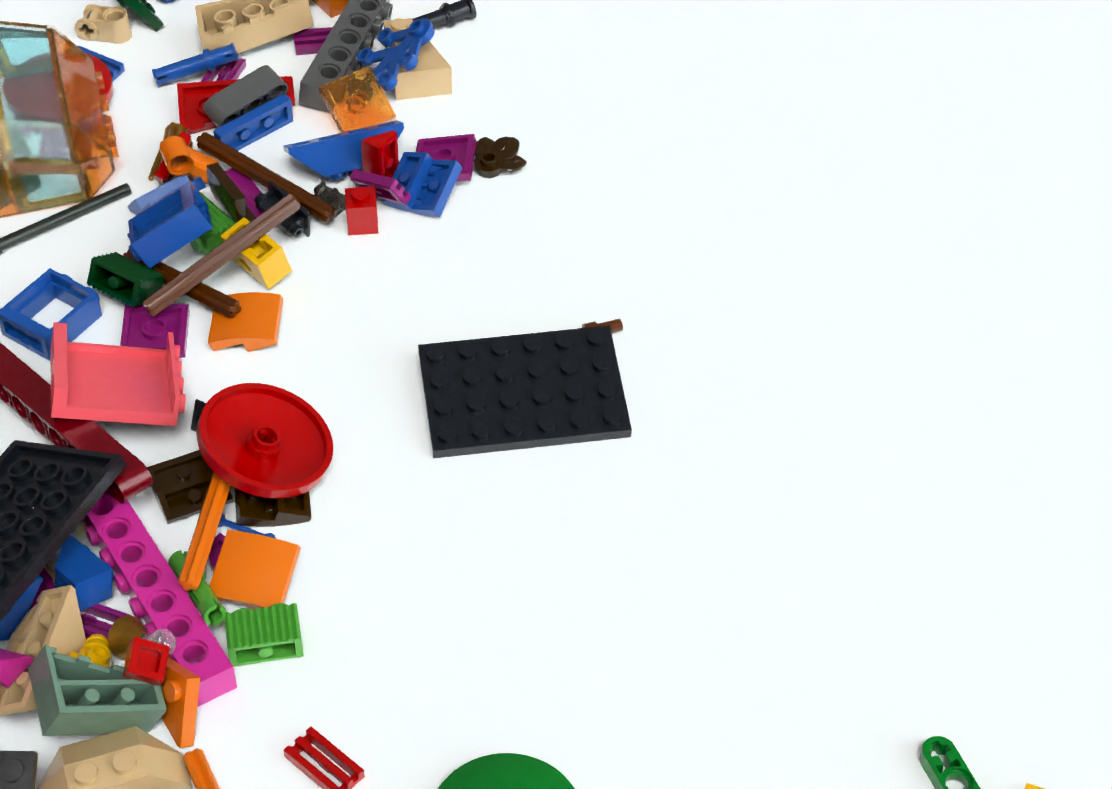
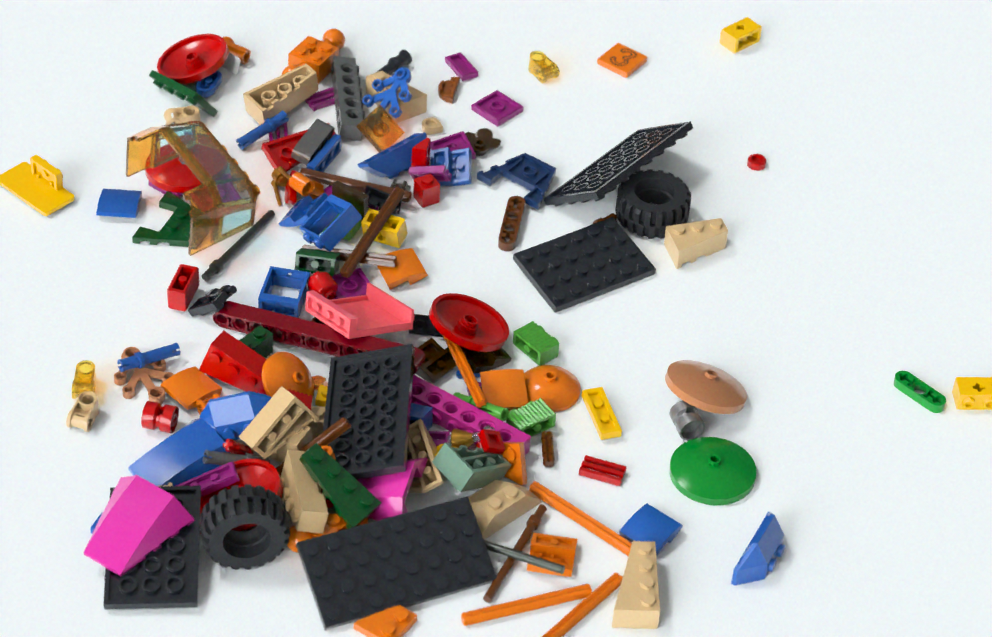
camera: 25 degrees left, 5 degrees down
(106, 319) = (323, 284): none -> red head
(261, 695) = (547, 448): none -> reddish brown axle
(342, 598) = (553, 385): none -> orange dish
(361, 503) = (536, 343): none -> bright green brick
(385, 658) = (601, 413): none -> yellow plate
(442, 116) = (431, 126): none -> tan tile
(453, 291) = (513, 223): none -> reddish brown beam
(503, 68) = (448, 89): none -> dark orange tile
(511, 716) = (687, 420): none -> flat silver wheel
(530, 219) = (525, 171): none -> dark blue wing
(544, 39) = (461, 66): none -> magenta tile
(556, 112) = (497, 108): none -> magenta tile
(576, 666) = (705, 387): none -> nougat dish
(657, 65) = (542, 67): none -> clear yellow piece
(665, 243) = (618, 164): none -> black plate
(684, 349) = (668, 197): none -> black tyre
(721, 398) = (694, 239): none -> tan wedge
(788, 84) = (622, 60): none -> orange tile
(904, 294) = (756, 162): none -> red tile
(992, 87) = (740, 35): none -> yellow brick

